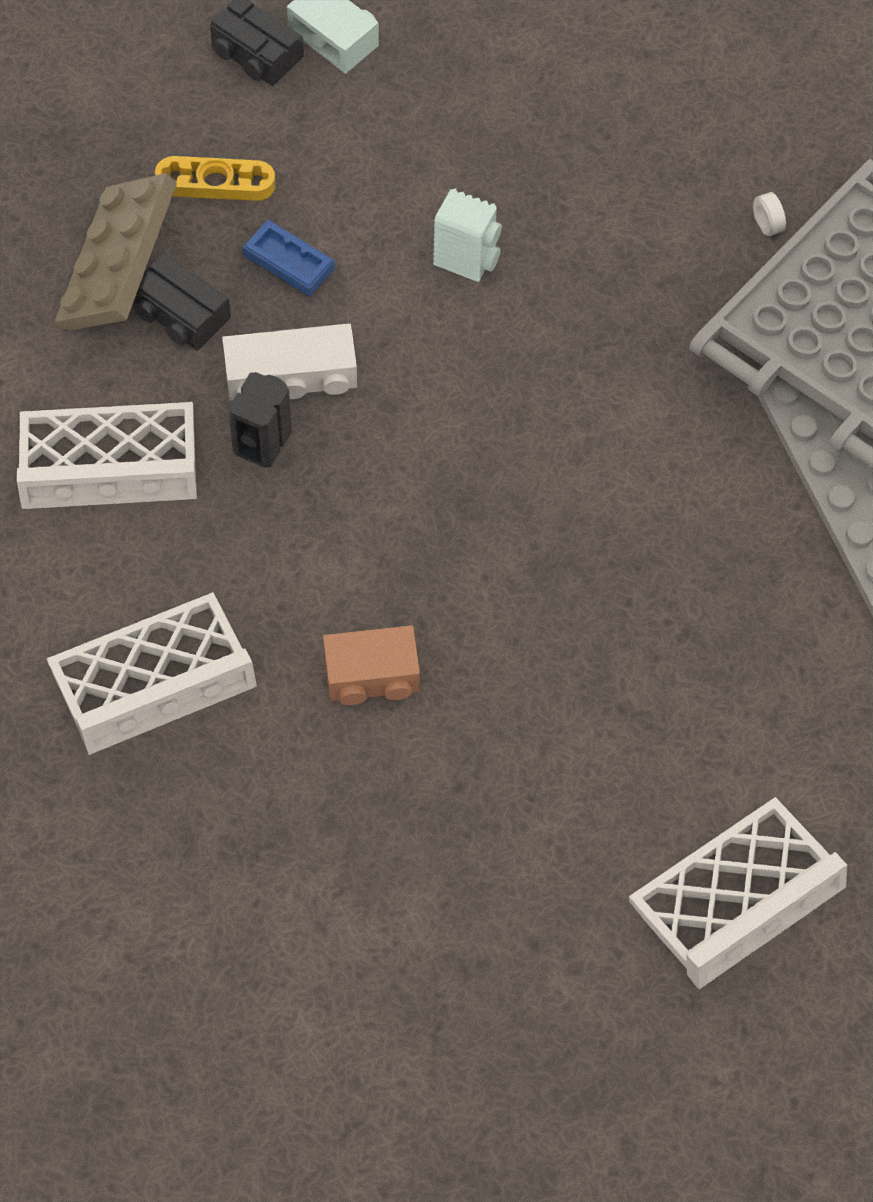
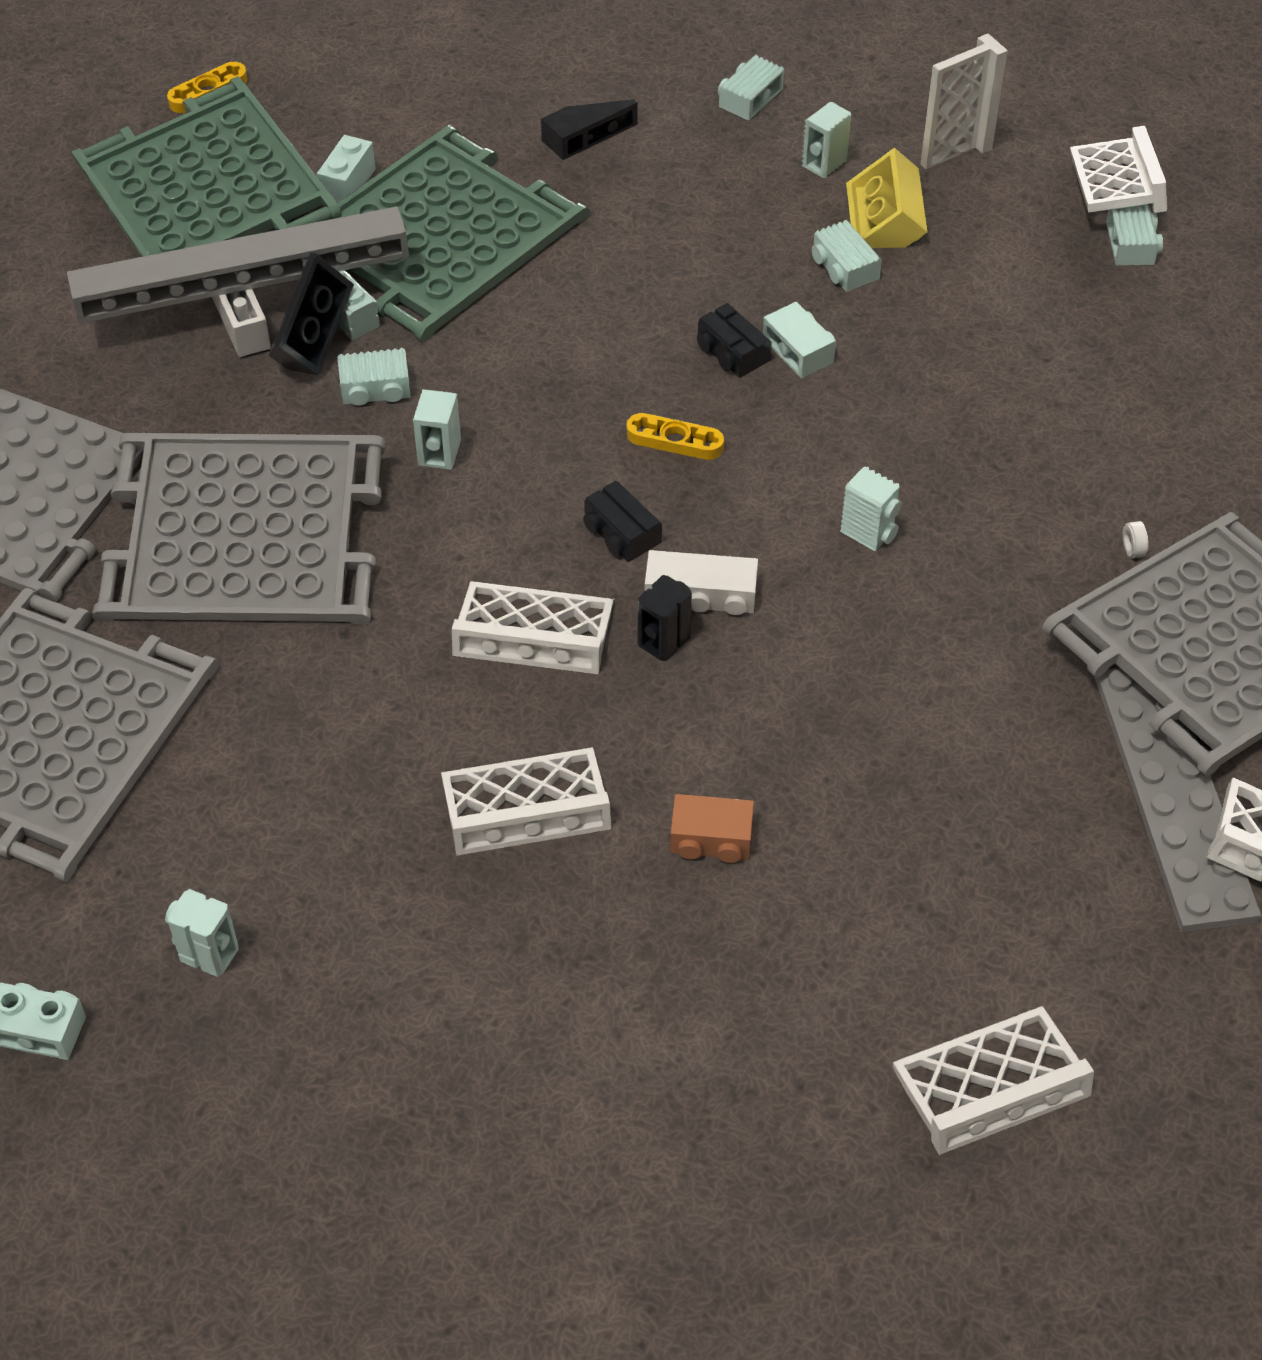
camera: 15 degrees right, 10 degrees down
(115, 253) = (578, 474): dark tan plate -> none
(288, 258) = (720, 504): blue plate -> none

